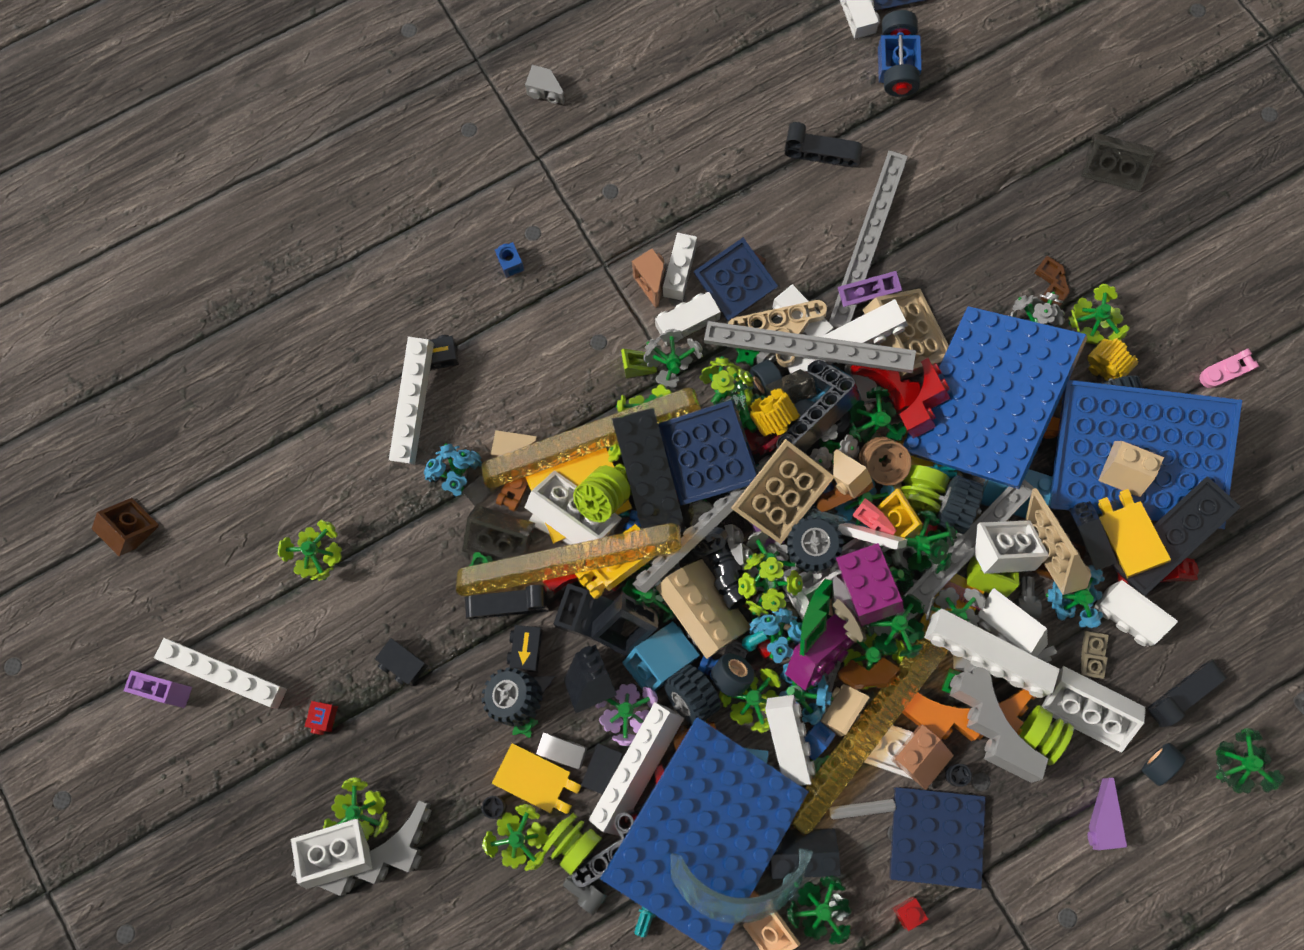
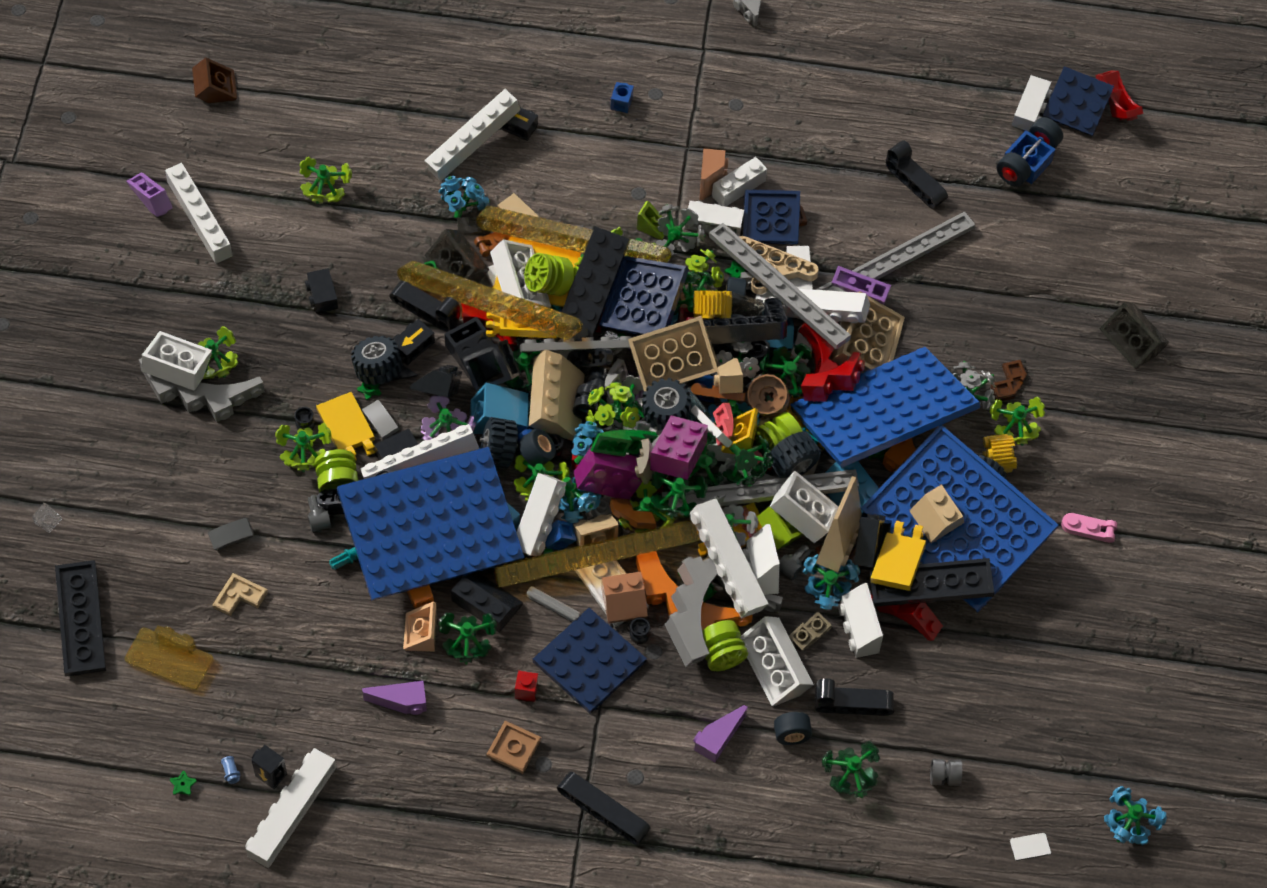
camera: 30 degrees right, 15 degrees down
(320, 717) = (240, 285): red brick -> none
(733, 909) = (417, 580): clear light blue windscreen -> none
(750, 642) = (567, 440): teal arm -> none

